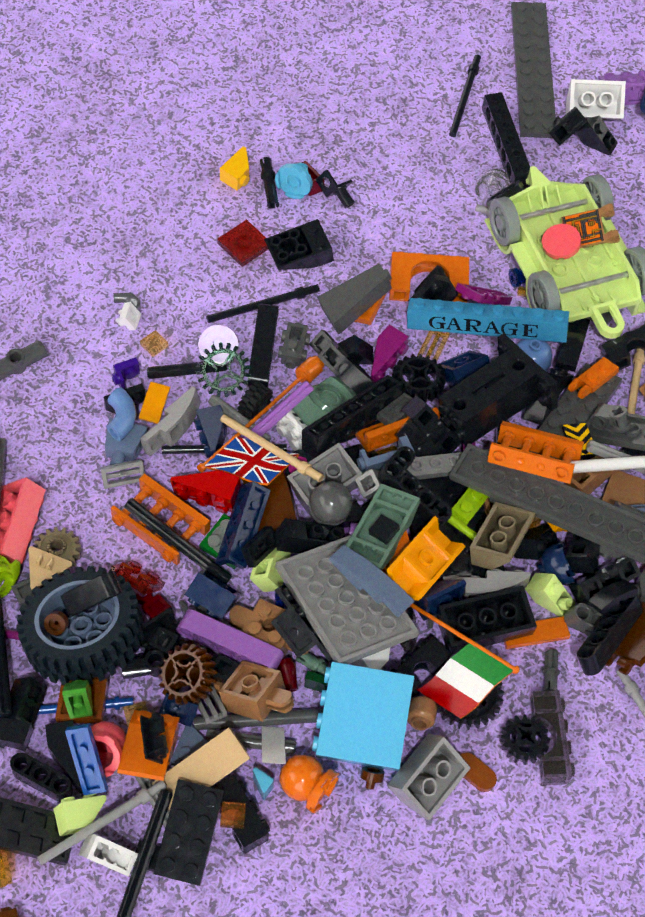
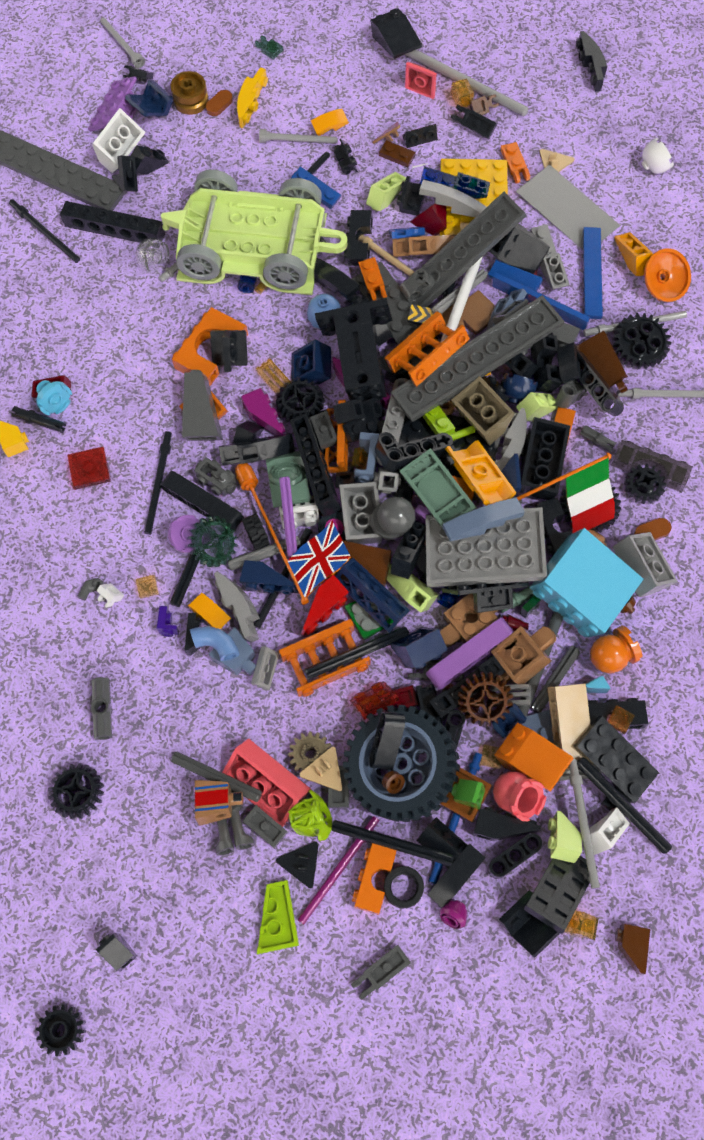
camera: 55 degrees left, 10 degrees up
(86, 759) = (531, 810): plate -> none
(154, 745) = (529, 746): black hinge -> none
(259, 547) = (400, 591): black plate -> none
(273, 745) = (573, 662): white sticker -> none
(300, 247) = (122, 425): black slope -> none
(302, 466) = (350, 521): tan bar -> none
(336, 189) = (81, 369): black bracket -> none
(384, 529) = (445, 487): black tile -> none
(483, 295) = (256, 313): magenta wing -> none
(488, 319) = (280, 323): dark azure brick -> none
(509, 191) = (168, 250): black plate -> none
(561, 241) = (244, 232): coral tile -> none
(591, 227) = (243, 210): flag -> none

